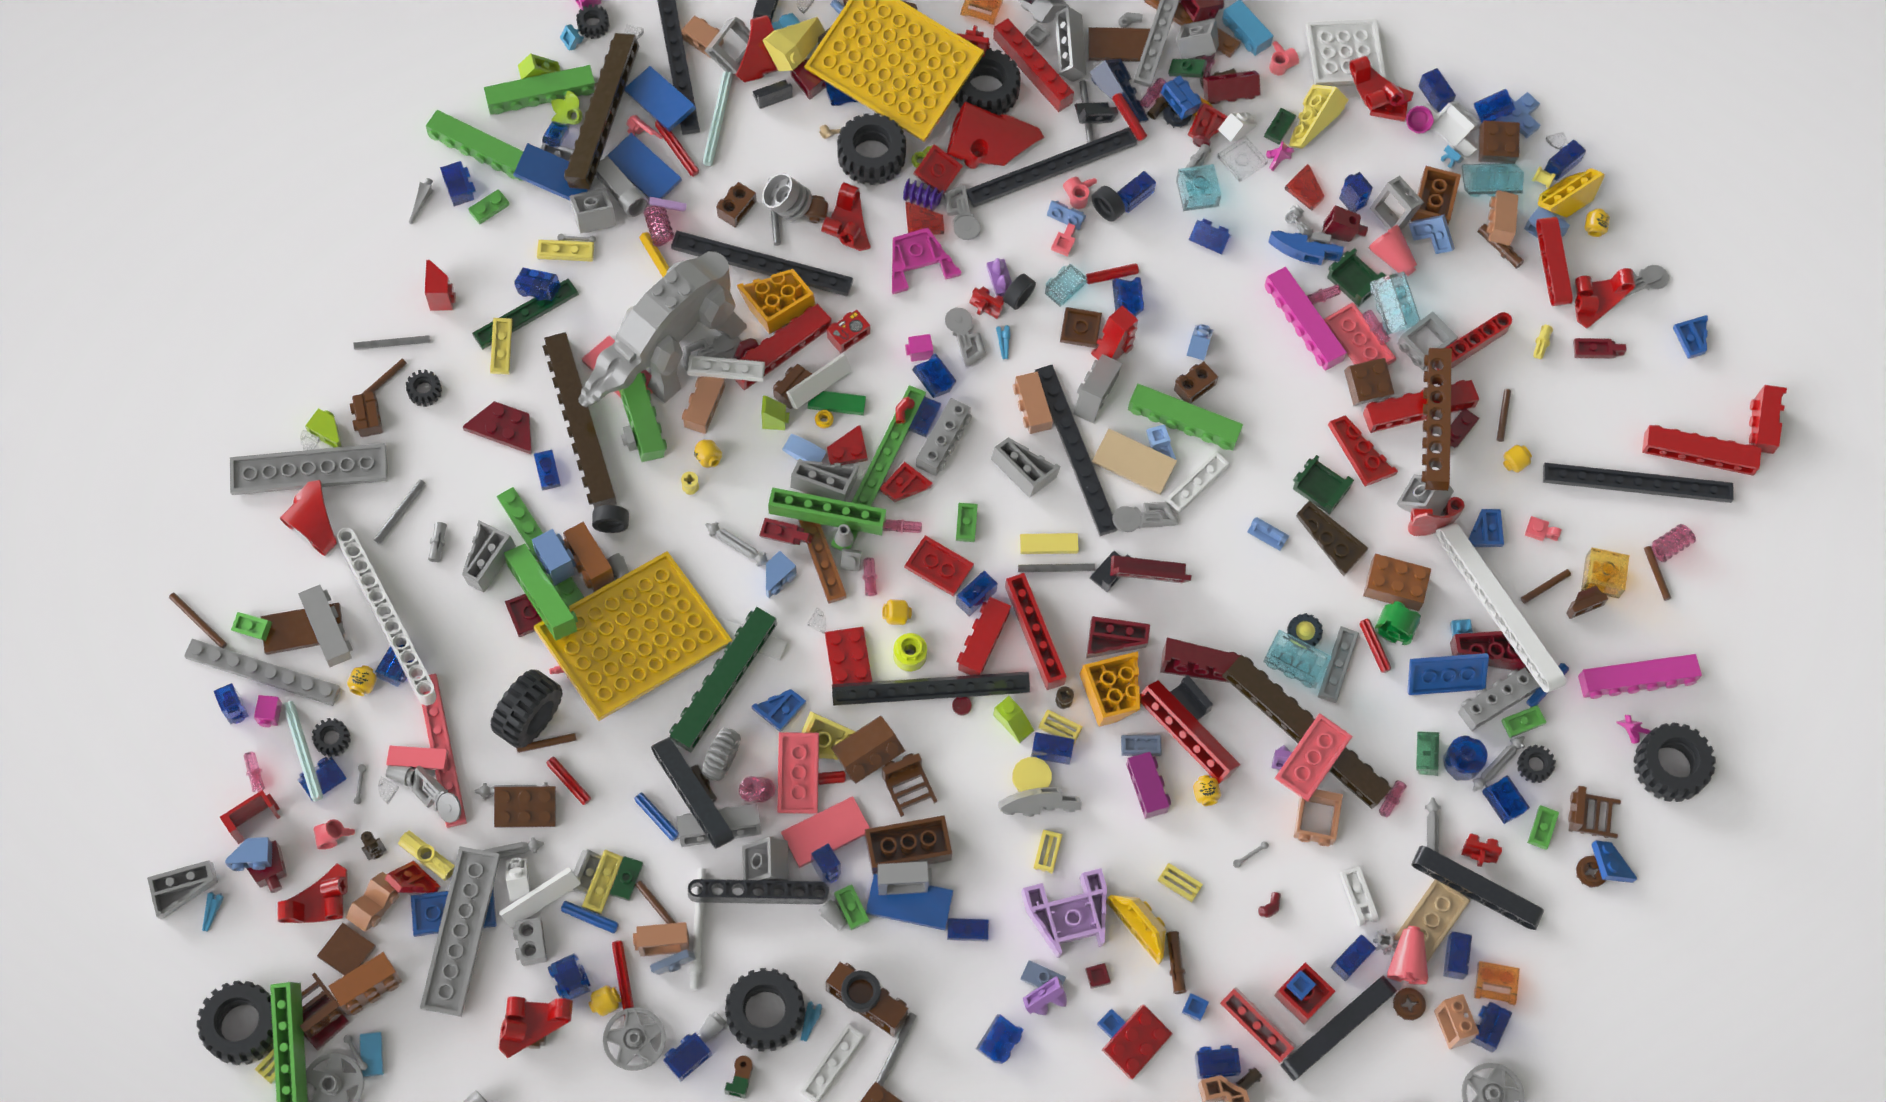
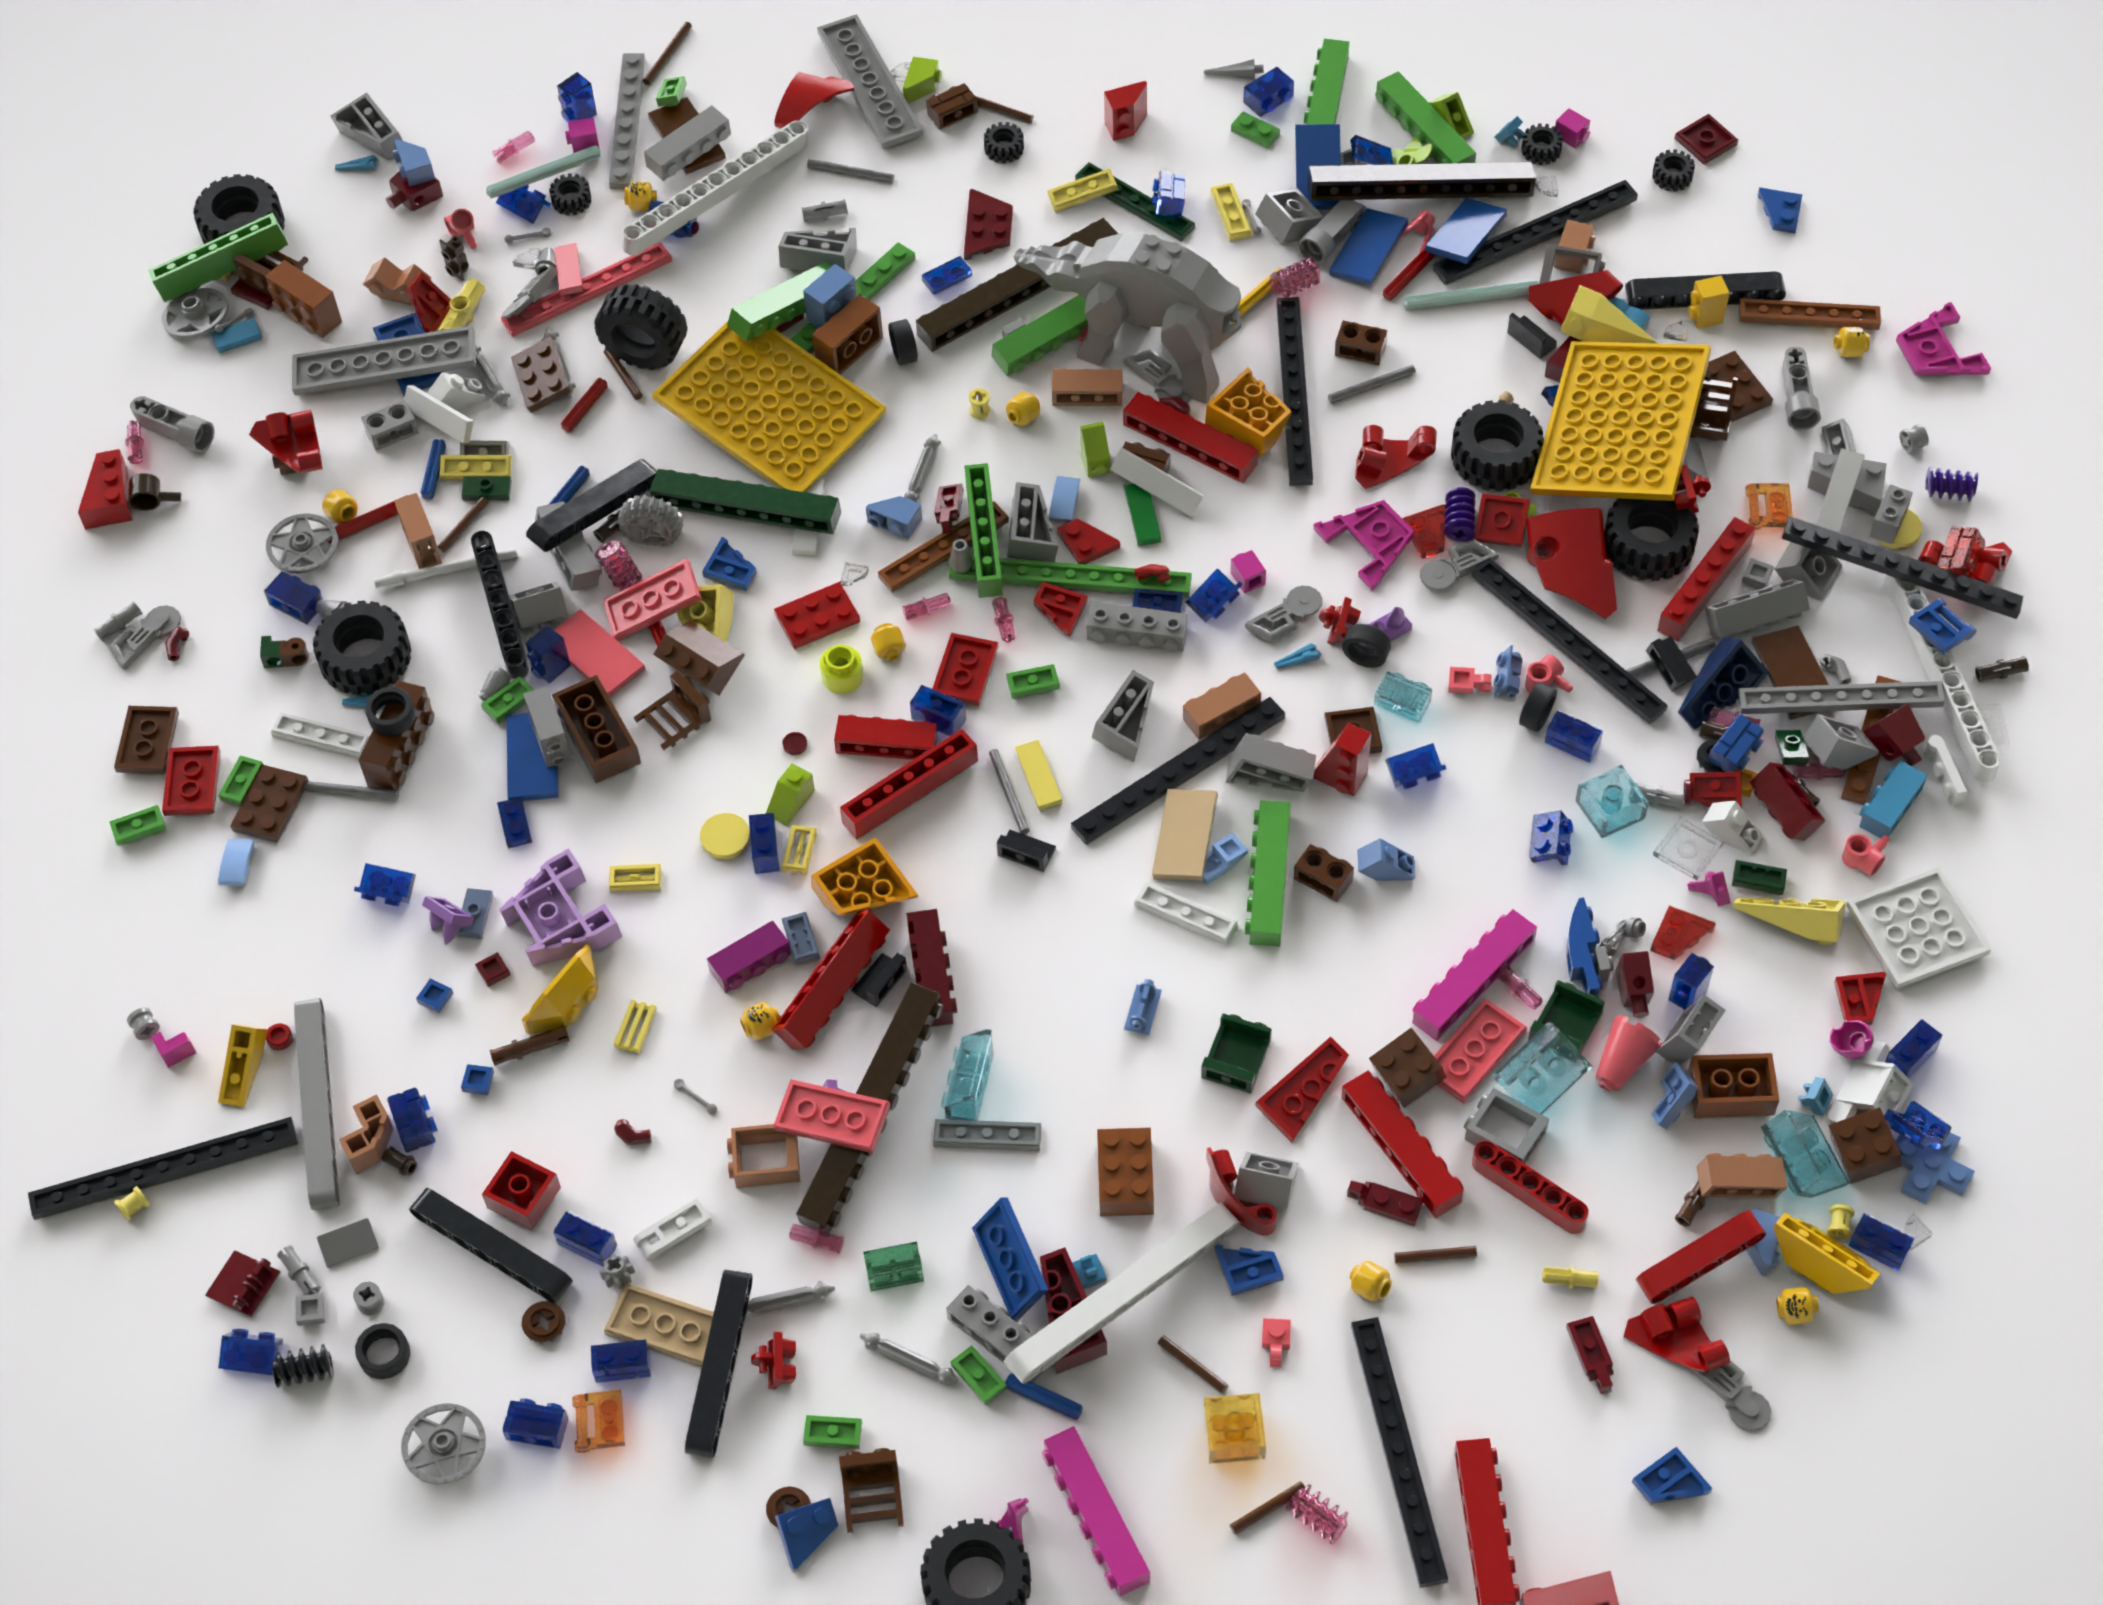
camera: 80 degrees right, 10 degrees down
(247, 810) = (451, 142): red panel -> none
(318, 902) = (386, 239): red panel -> none
(346, 950) = (344, 279): reddish brown tile -> none
(391, 342) = (1050, 102): flat silver bar -> none
(570, 977) = (354, 465): clear blue brick -> none
(618, 565) = (854, 368): light grey cone -> none
(667, 204) = (1328, 277): lavender tile -> none
(672, 962) = (396, 550): sand blue plate -> none
(726, 368) = (1132, 387): white tile -> none
(787, 197) = (1385, 378): light grey wheel -> none
(817, 210) = (1390, 417): reddish brown head -> none
(824, 414) = (1114, 501): yellow plate -> none
(848, 331) = (1239, 495): red brick -> none
(850, 559) = (939, 579): light grey plate -> none
(930, 688) = (802, 703): black plate -> none
(1030, 801) = (691, 841): light grey slope -> none
(1061, 692) = (835, 839): dark brown bush -> none
(1112, 273) = (1445, 745): red axle -> none
(1115, 636) = (932, 866): dark red wedge -> none
(1129, 117) = (1679, 697): red axle -> none
(1129, 519) = (1102, 846): light grey piece -> none
(1137, 1042) = (417, 1027): red plate -> none
(1149, 569) = (1034, 880): dark red fence -> none
(1257, 1024) = (468, 1147): red brick -> none
(1300, 985) = (519, 1169): blue plate -> none
(1306, 629) = (1015, 1079): black wheel -> none
(1333, 539) = (1161, 1087): dark brown wing -> none
(1374, 88) = (1875, 970): red panel -> none
(1375, 645) = (1028, 1171): red axle -> none
(1376, 327) = (1495, 1058): clear pink axle -> none
(1398, 623) = (1060, 1180): green brick -> none
(1410, 958) = (597, 1298): coral cone -> none
(1441, 359) = (1414, 1150): reddish brown brick -> none
(1454, 1025) = (514, 1378): nougat window -> none
(1455, 755) = (909, 1307): clear blue brick -> none
(1506, 799) = (854, 1374): clear blue bracket -> none
(1544, 756) = (915, 1389): black tyre -> none
(1586, 601) = (1182, 1414): reddish brown slope -> none

